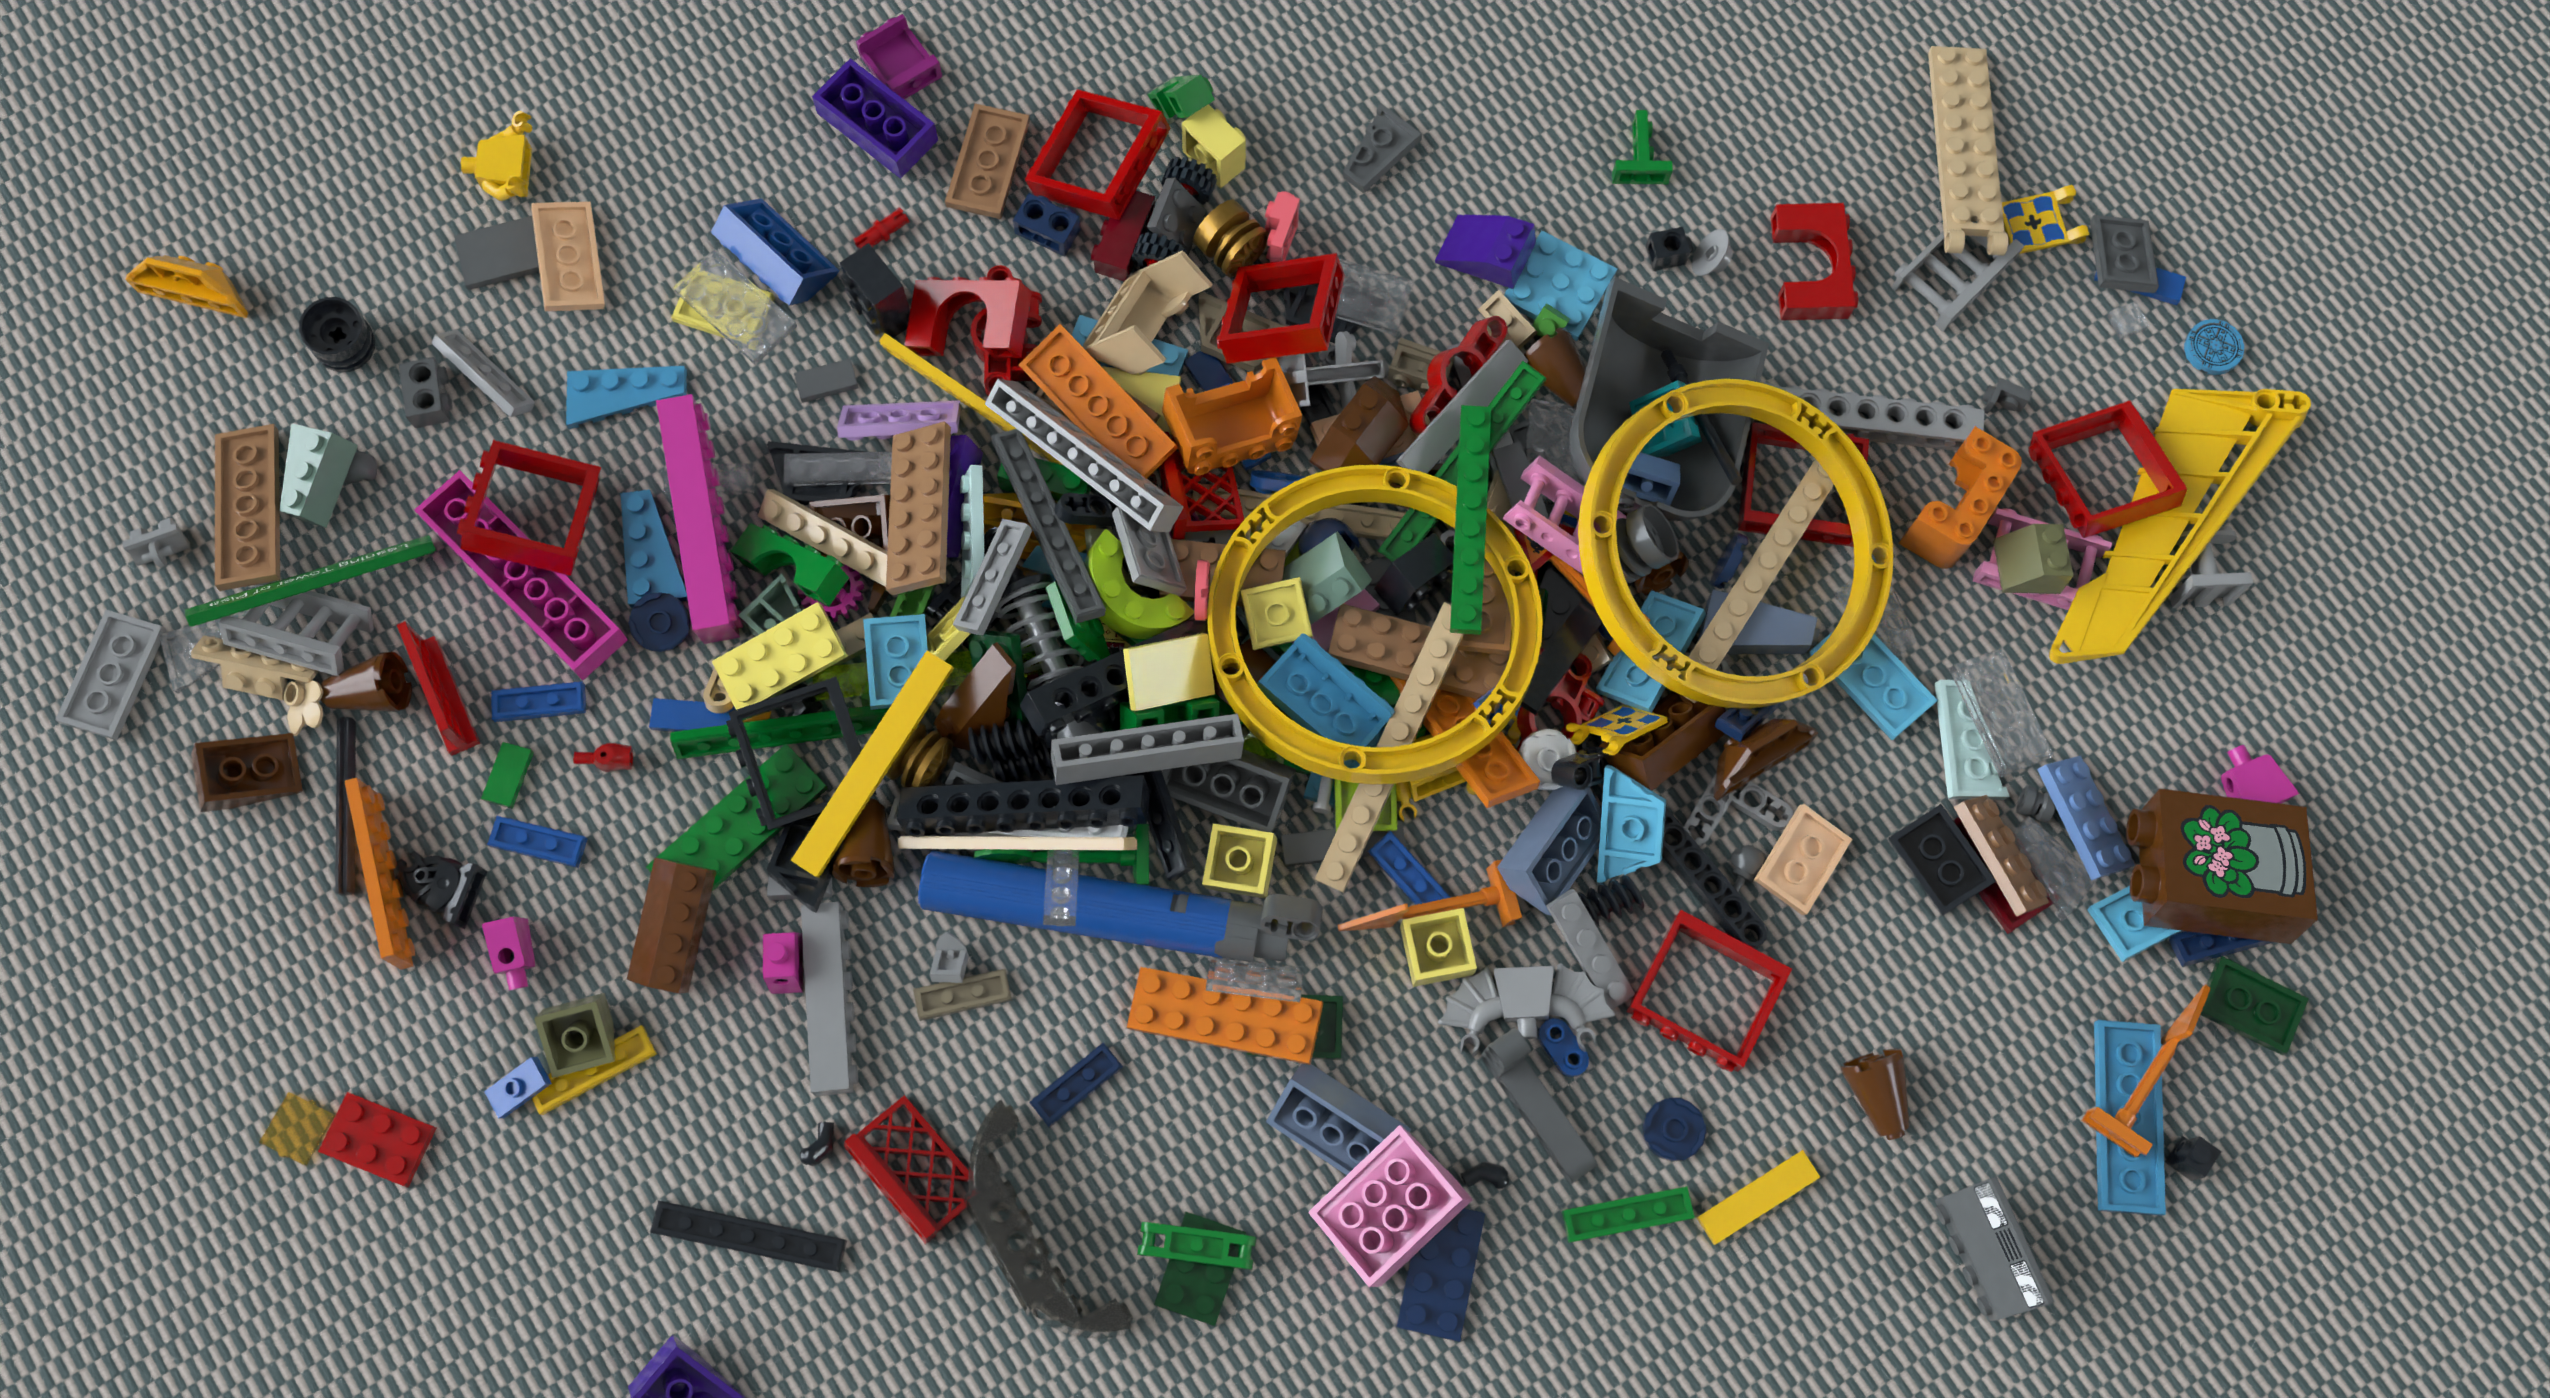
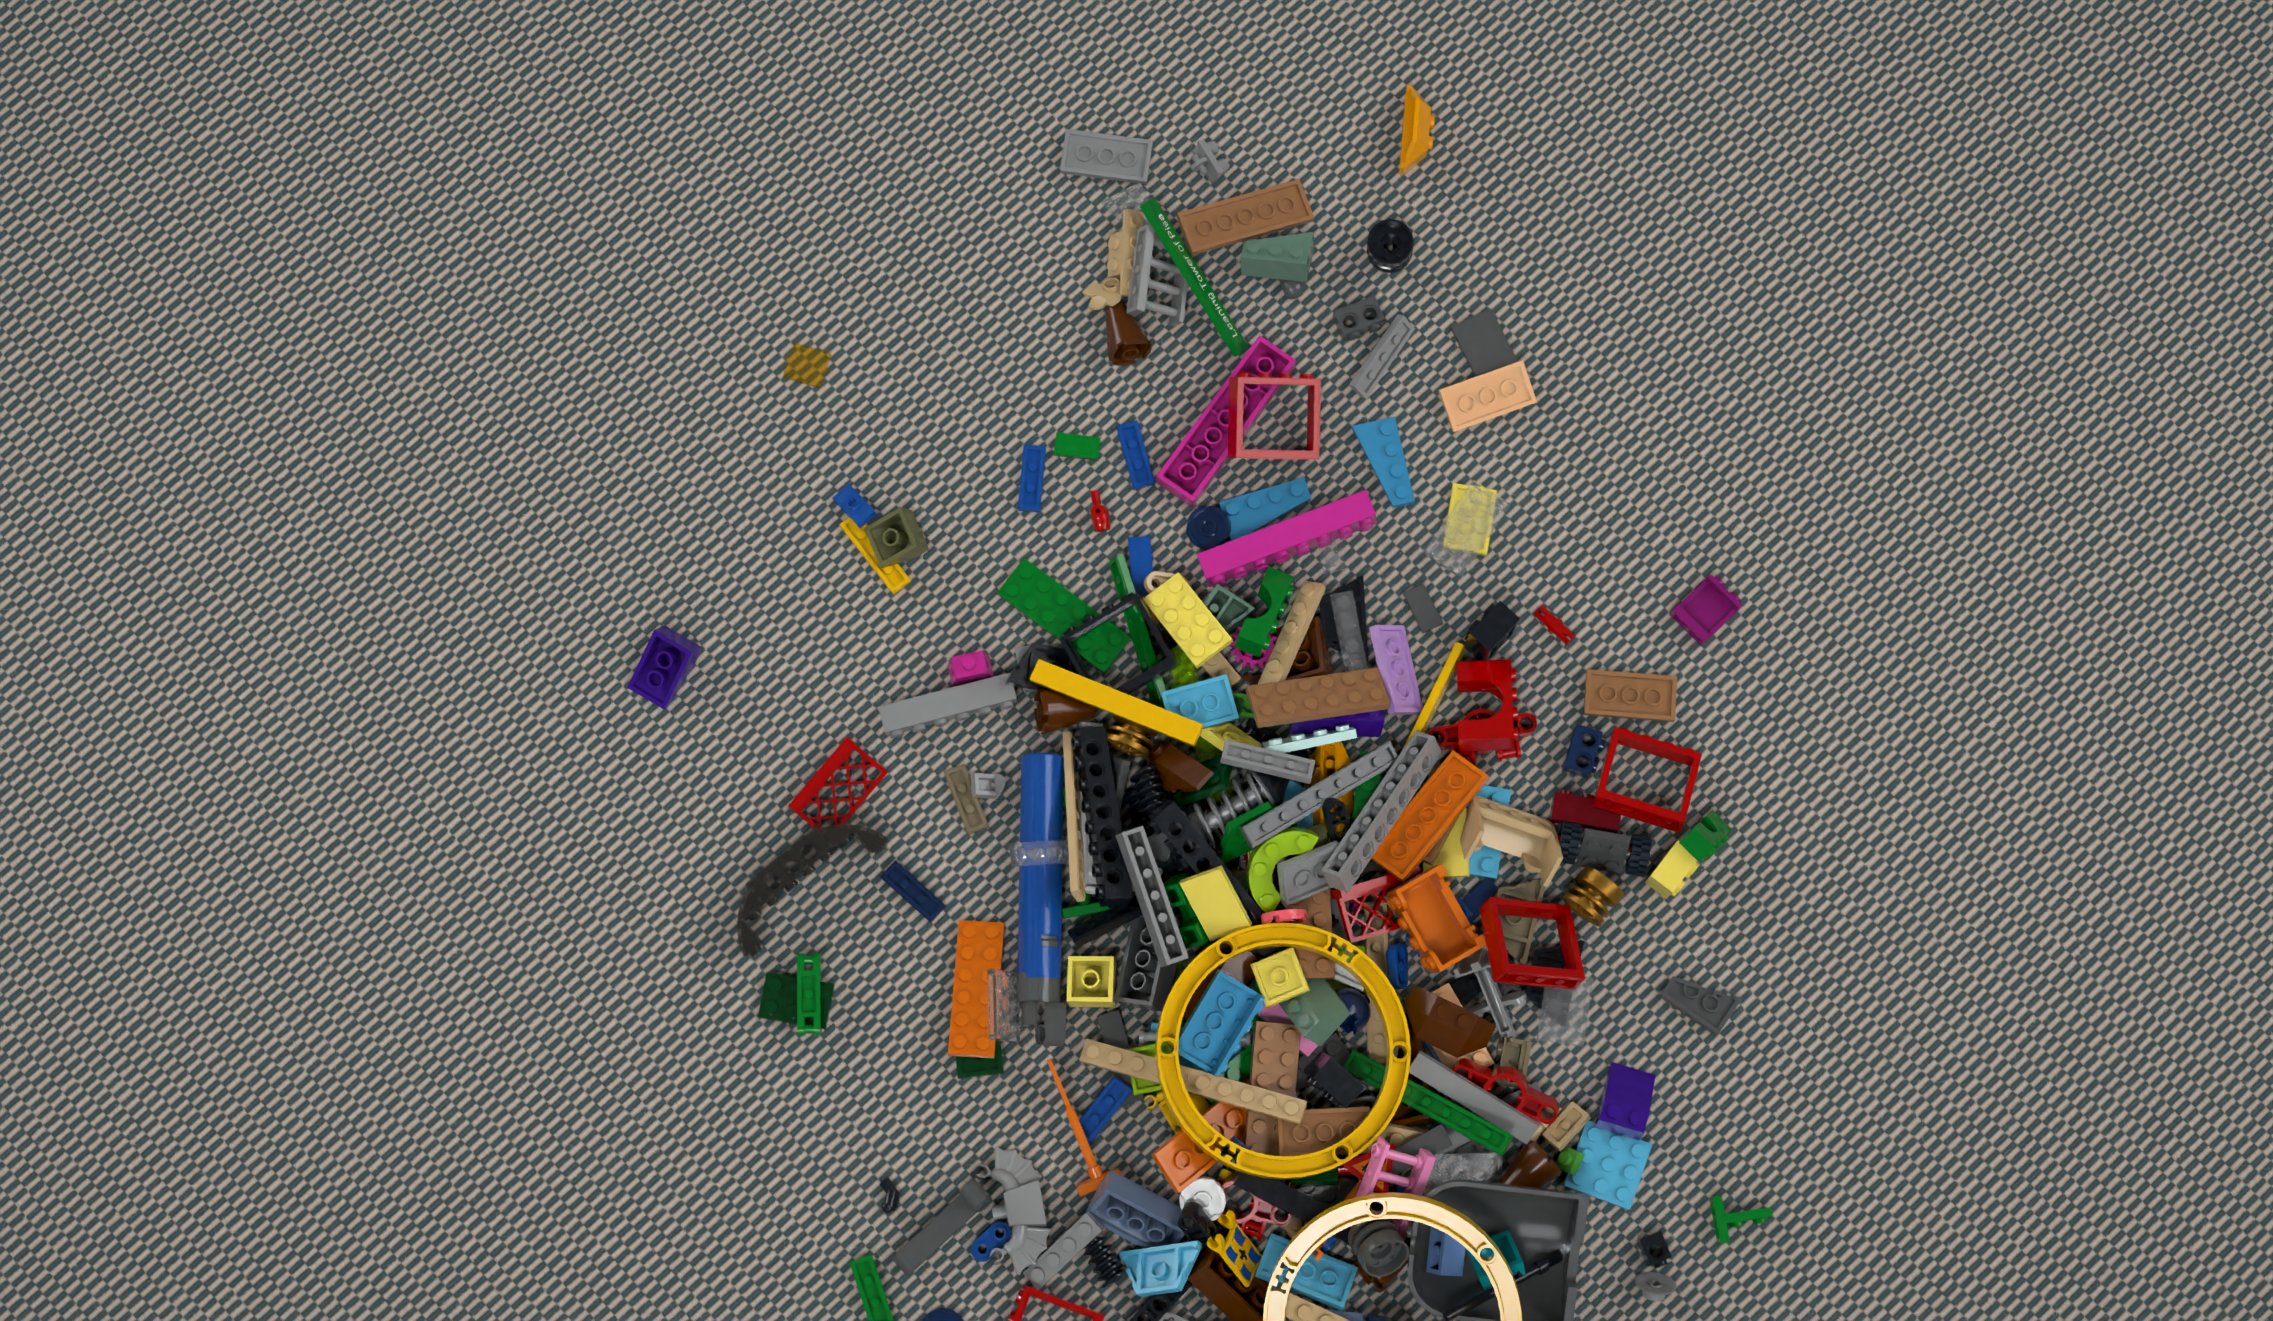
camera: 85 degrees right, 5 degrees up
(245, 771) = (1050, 267): reddish brown slope -> none
(344, 824) = (1037, 340): black axle -> none
(377, 1139) = (806, 420): red plate -> none
(378, 866) = (992, 375): orange plate -> none
(440, 690) = (1129, 385): red fence -> none
(444, 888) = (986, 423): black piece -> none
(502, 939) = (956, 477): dark pink torso -> none
(503, 161) = (1556, 330): yellow torso -> none
(671, 926) = (982, 585): reddish brown slope -> none
(748, 1236) = (776, 684): black tile -> none
(773, 250) = (1522, 548): blue slope -> none
(820, 1148) = (843, 721): black arm -> none
(875, 118) = (1647, 602): dark purple brick -> none
(1281, 224) = (1614, 934): coral plate -> none
(1330, 1119) = (909, 1083): sand blue slope -> none
(1389, 1207) = (853, 1126): bright pink slope -> none
(1438, 947) = (1049, 1137): light yellow brick -> none
(1441, 1279) = (818, 1172): dark blue plate -> none
(1470, 520) = (1375, 1111): green plate -> none

